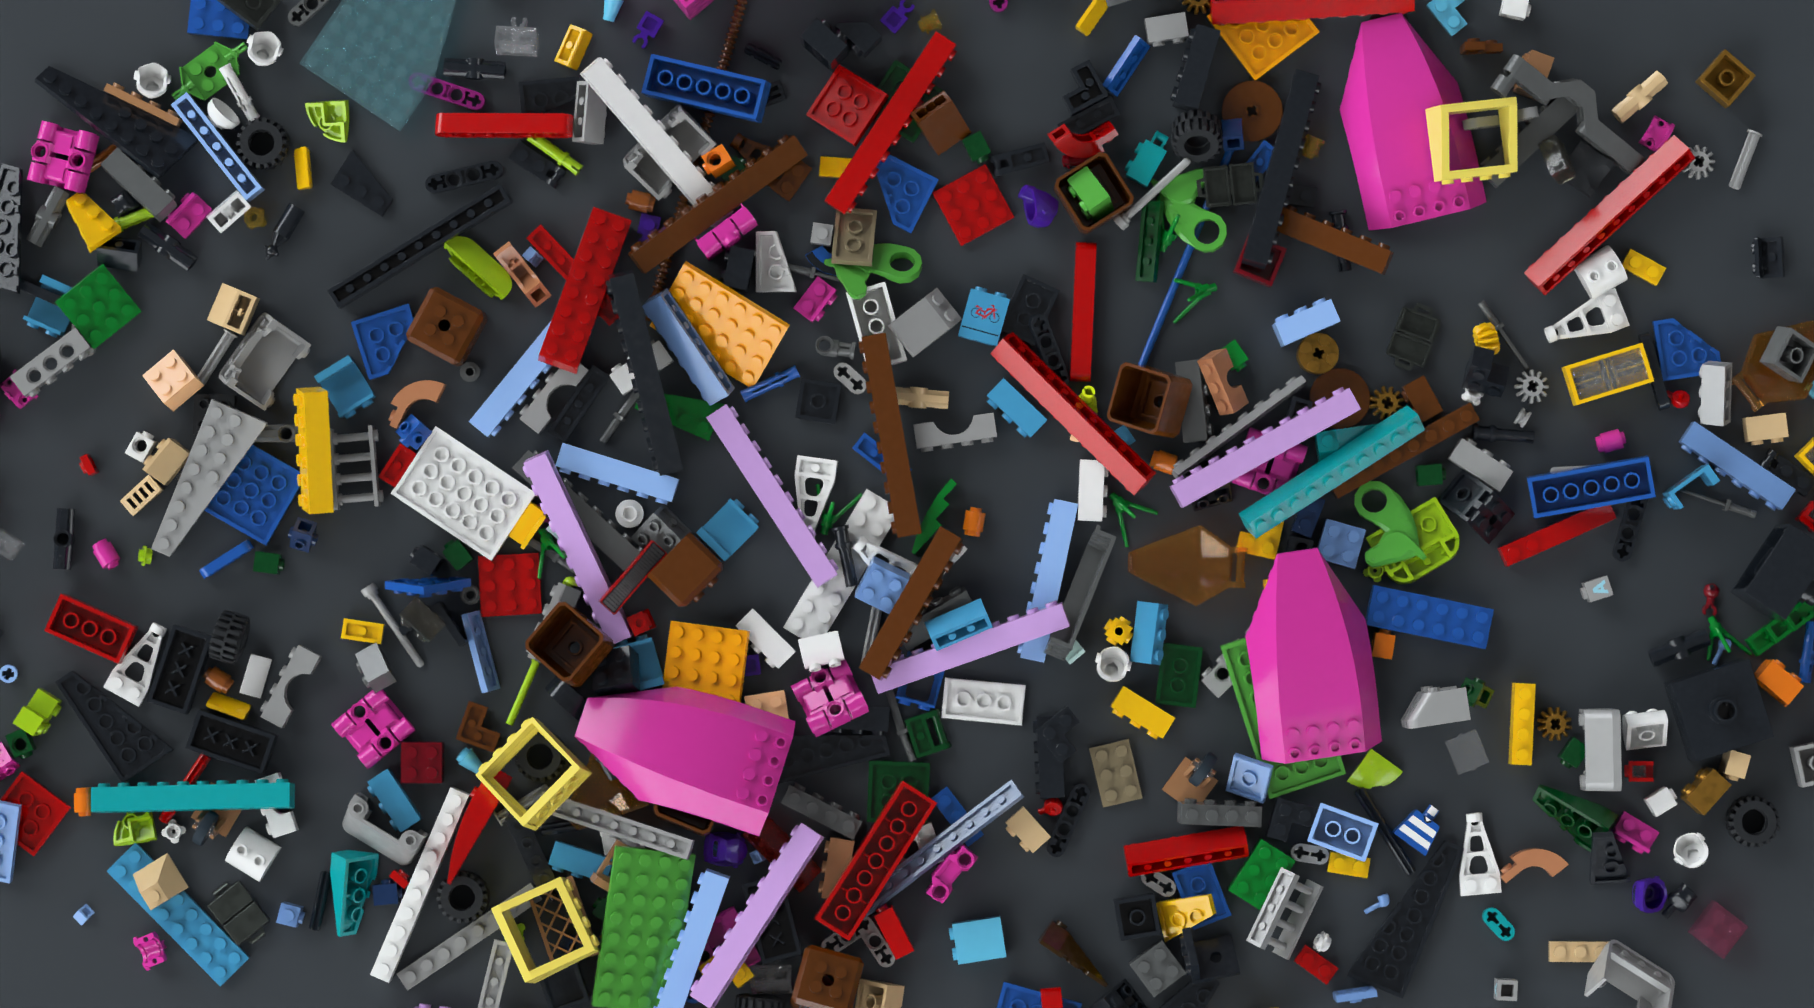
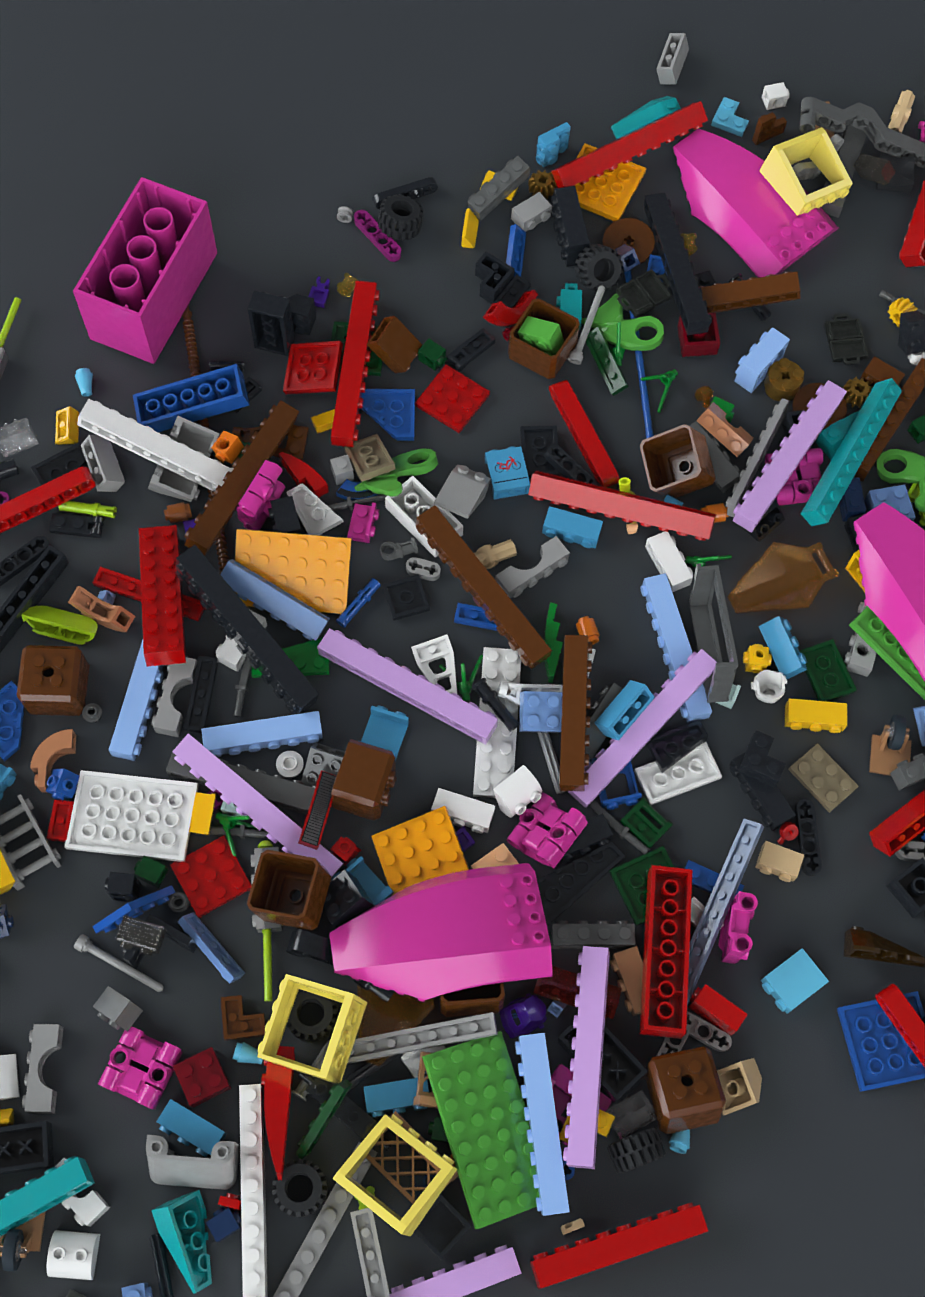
camera: 30 degrees left, 20 degrees down
(362, 631) = (91, 983): yellow plate -> none
(513, 848) = (319, 1124): none -> dark green plate
(648, 26) = (121, 384): dark purple plate -> none
(782, 221) = (304, 474): none -> red slope
(995, 674) = (676, 743): none -> black wing
(1038, 206) = (503, 372): dark purple helmet -> none
(1229, 327) = (704, 395): none -> clear orange plate
(1263, 546) = (830, 536): yellow plate -> none

